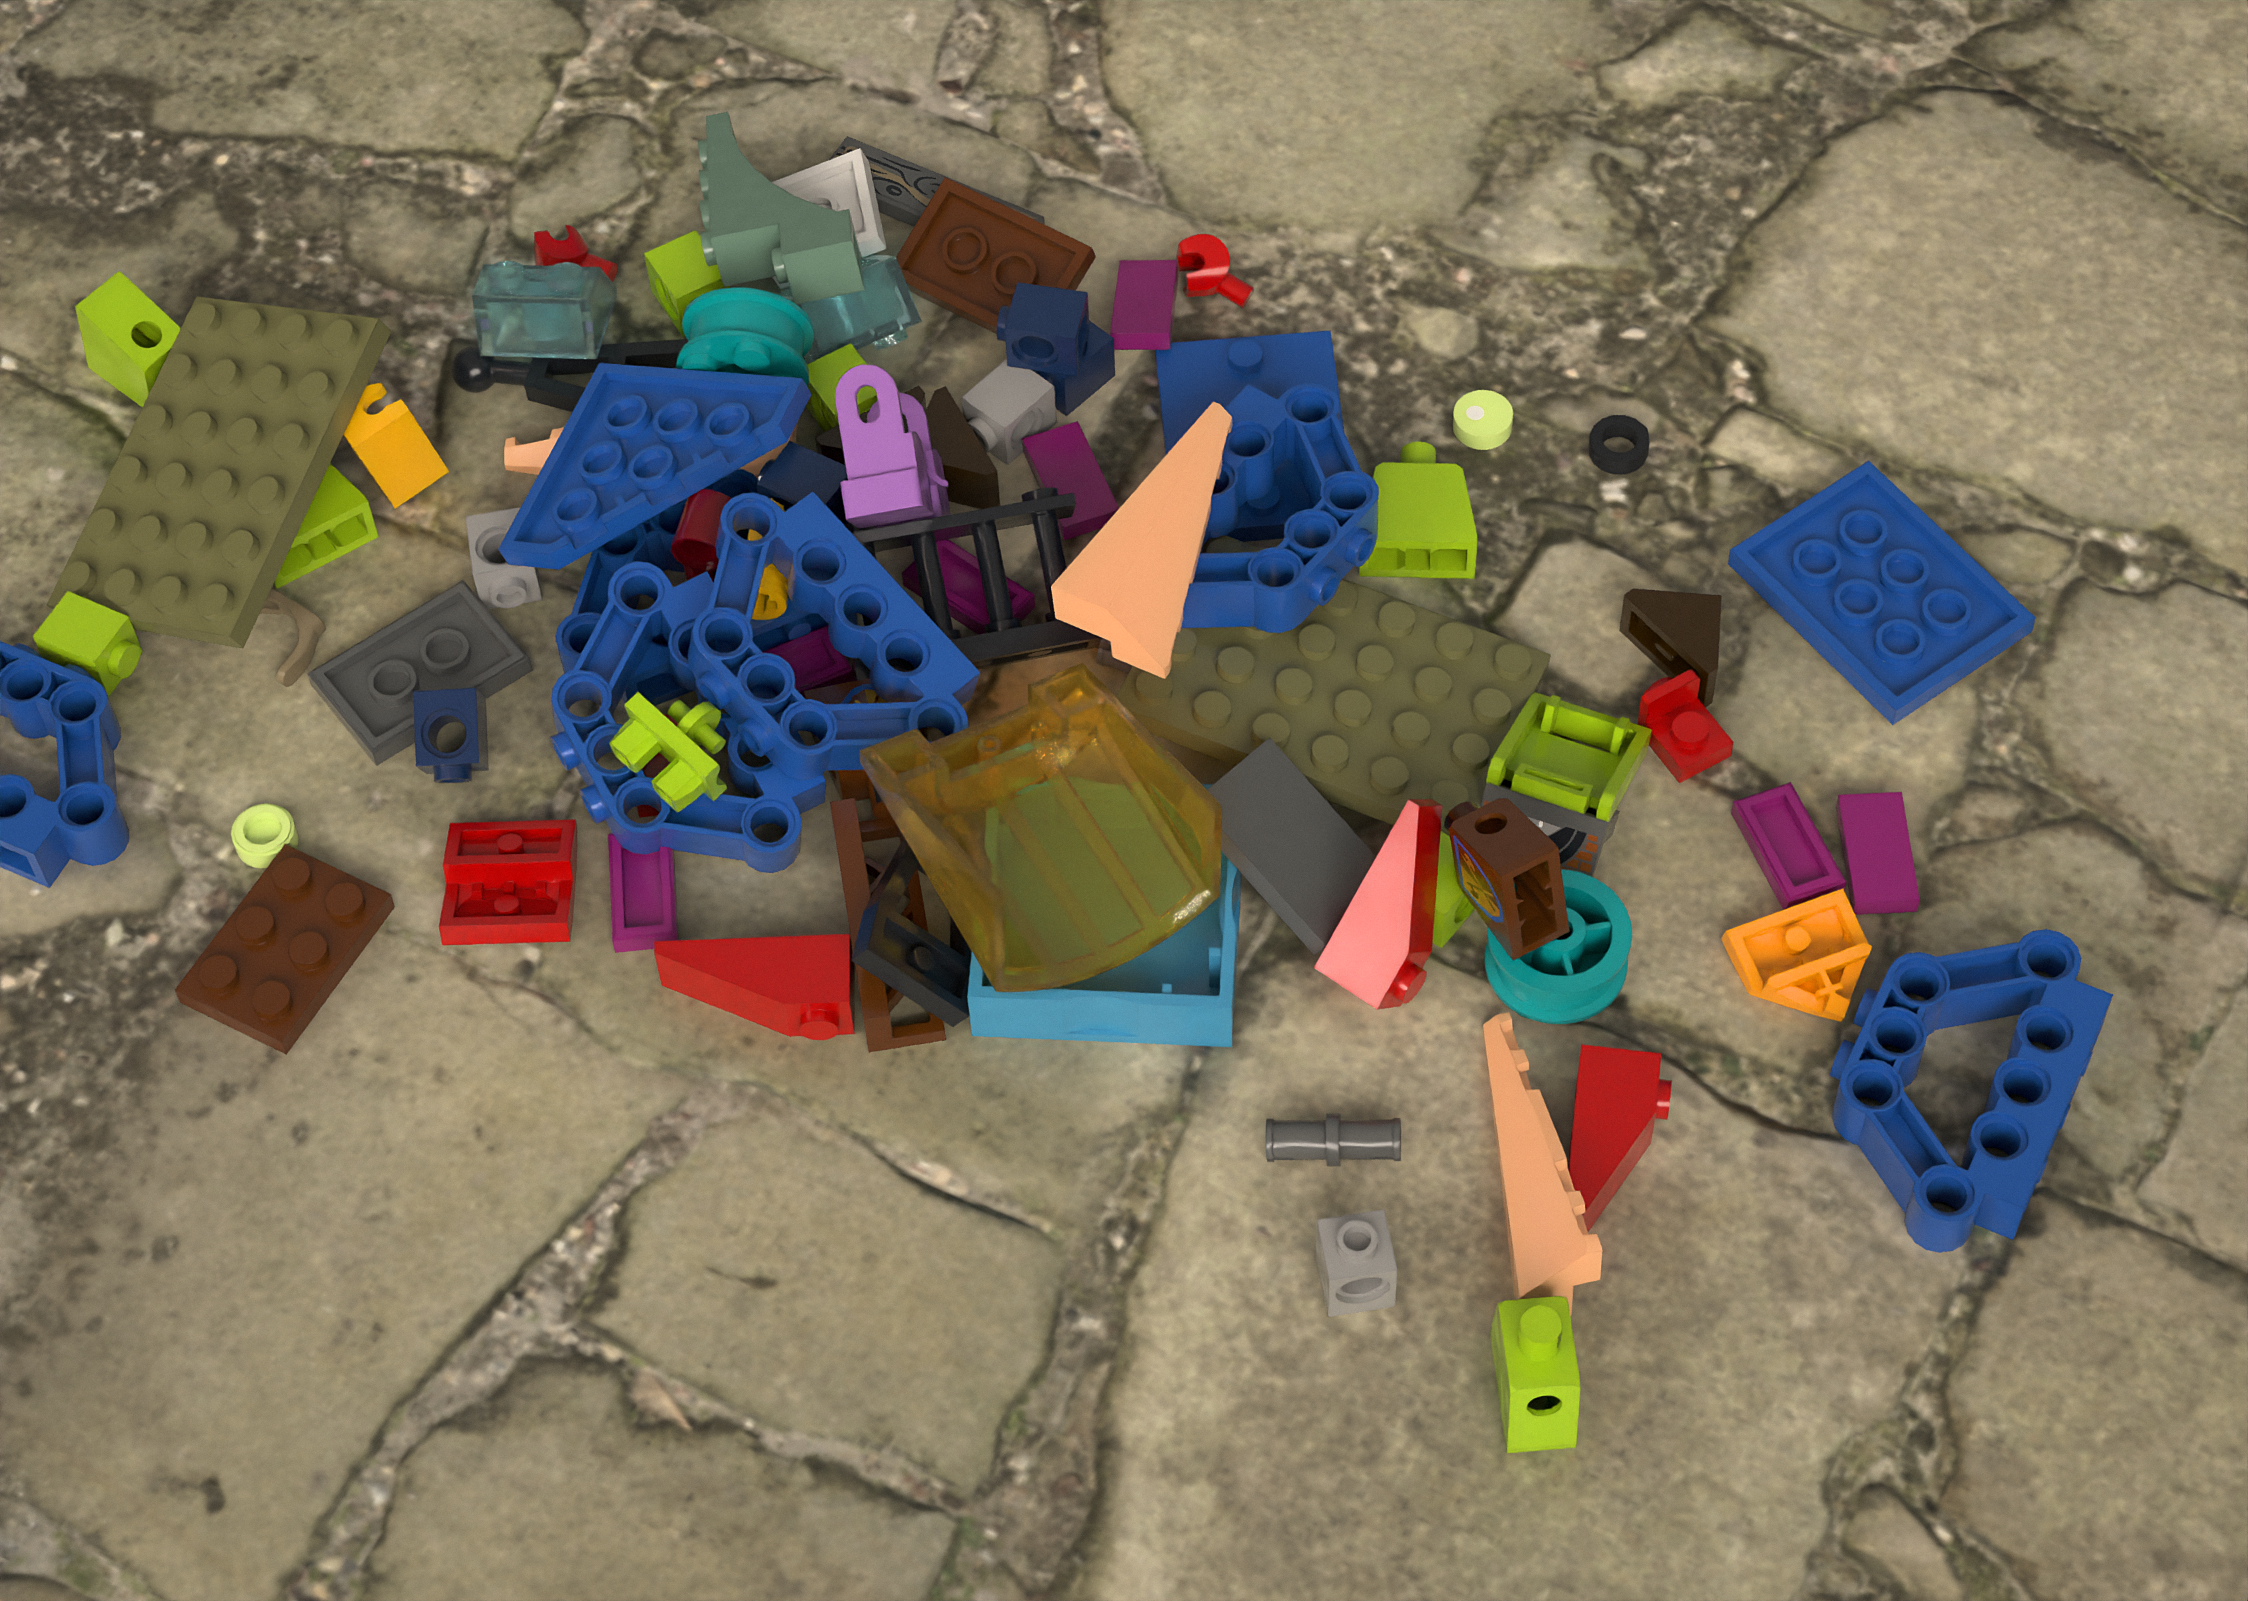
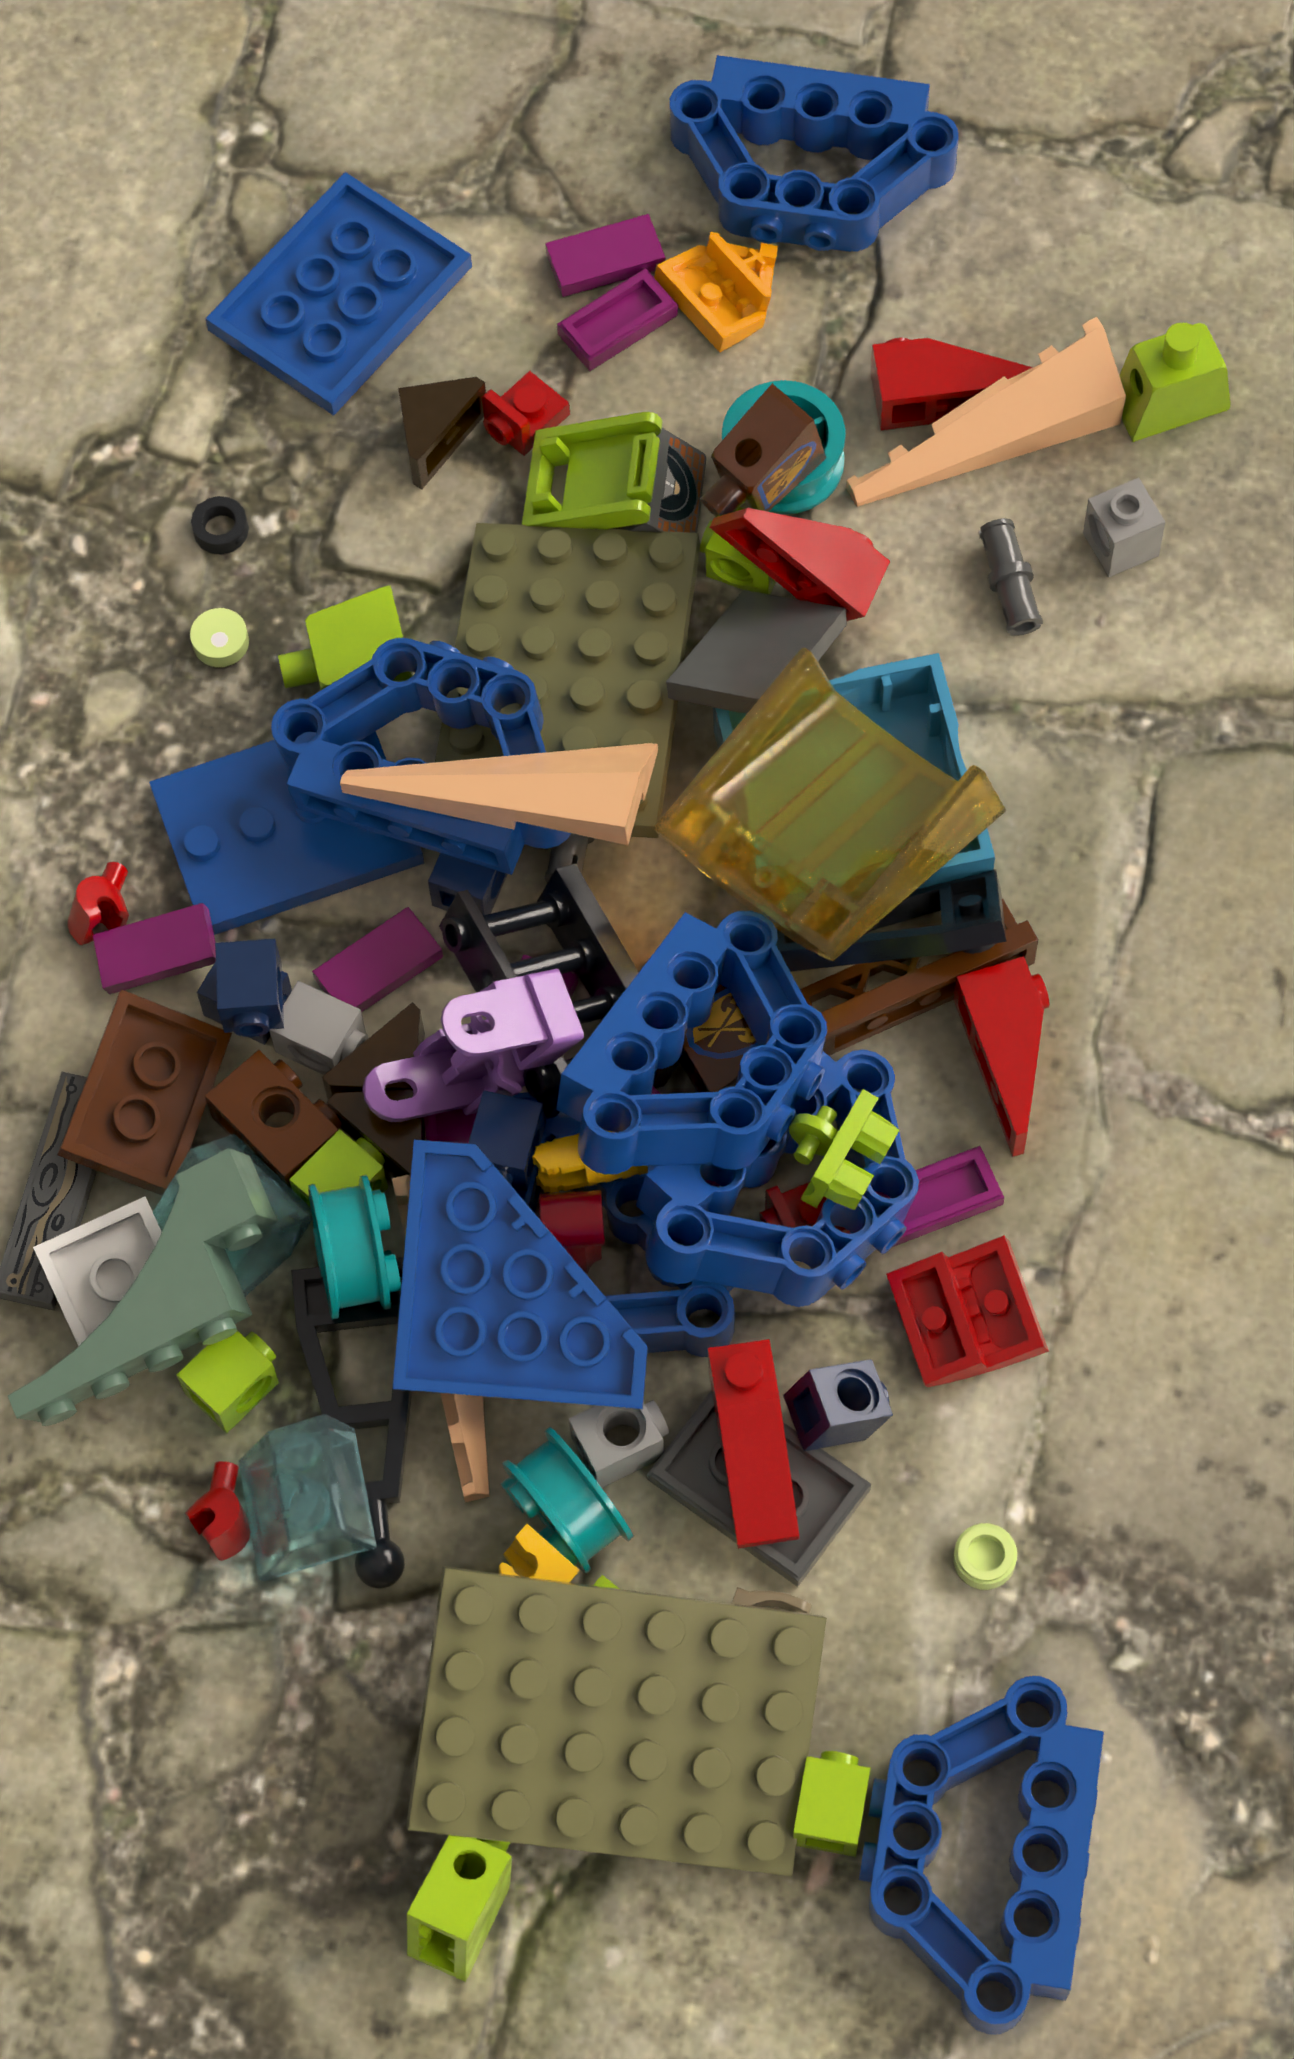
camera: 105 degrees left, 10 degrees up
(285, 949) = (1099, 1488): reddish brown plate -> none
(438, 478) = (566, 1499): none -> teal wheel
(448, 648) = (753, 1443): none -> red slope
(932, 350) = (255, 1093): none -> reddish brown brick

